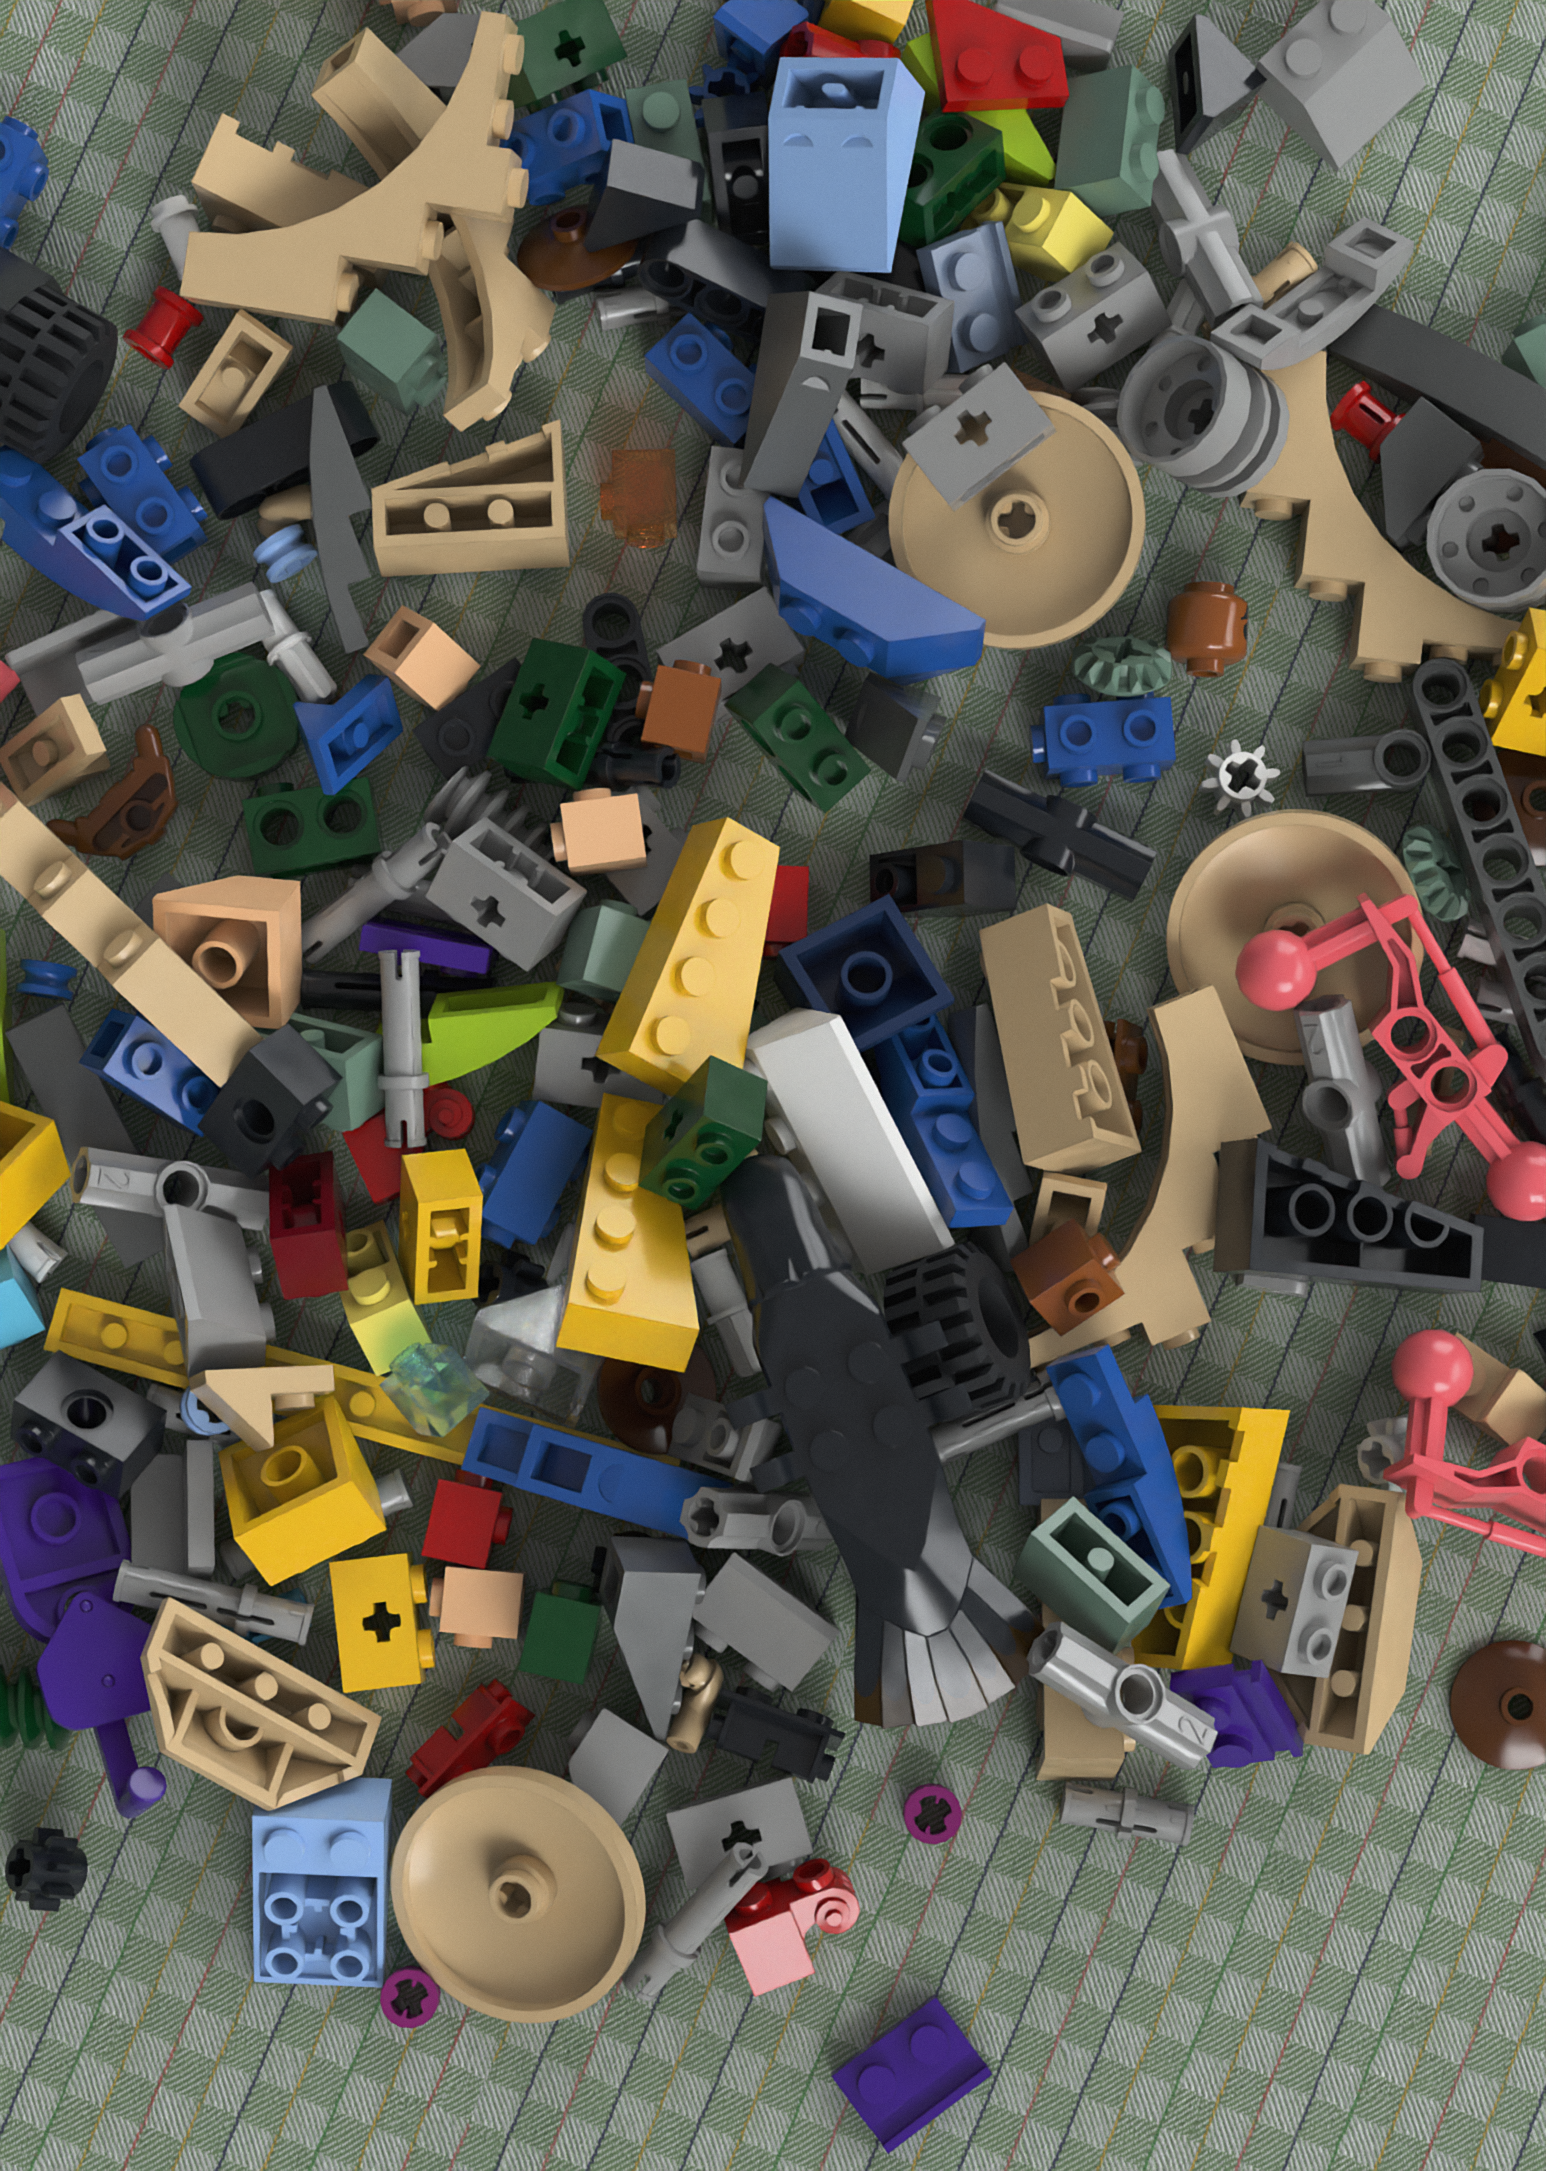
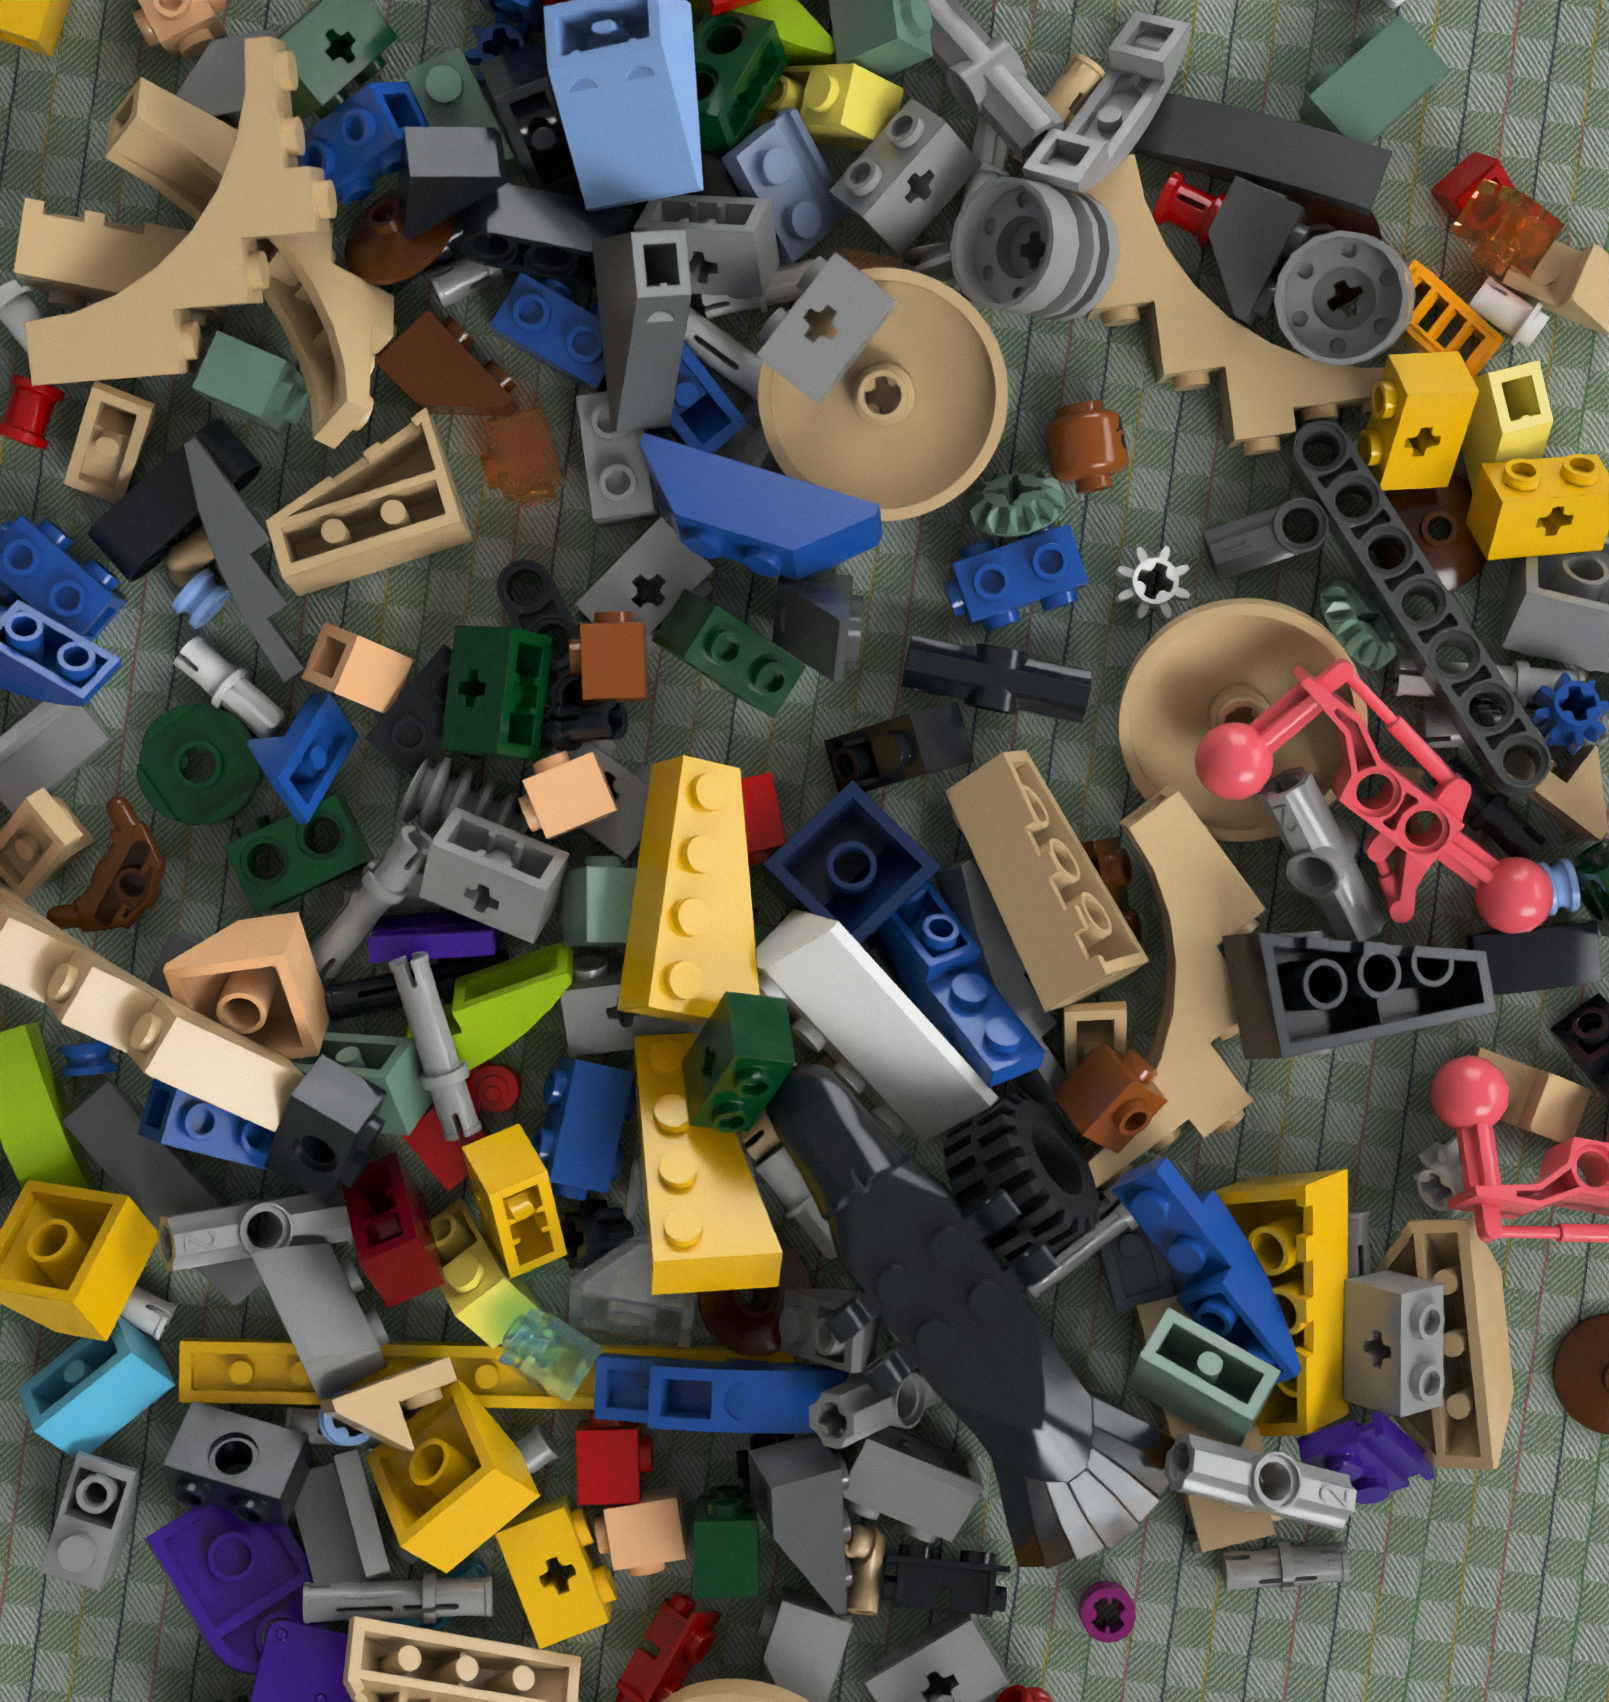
camera: 10 degrees left, 5 degrees up
(175, 644) = (121, 715): light grey piece -> none
(580, 387) = (441, 375): none -> reddish brown slope

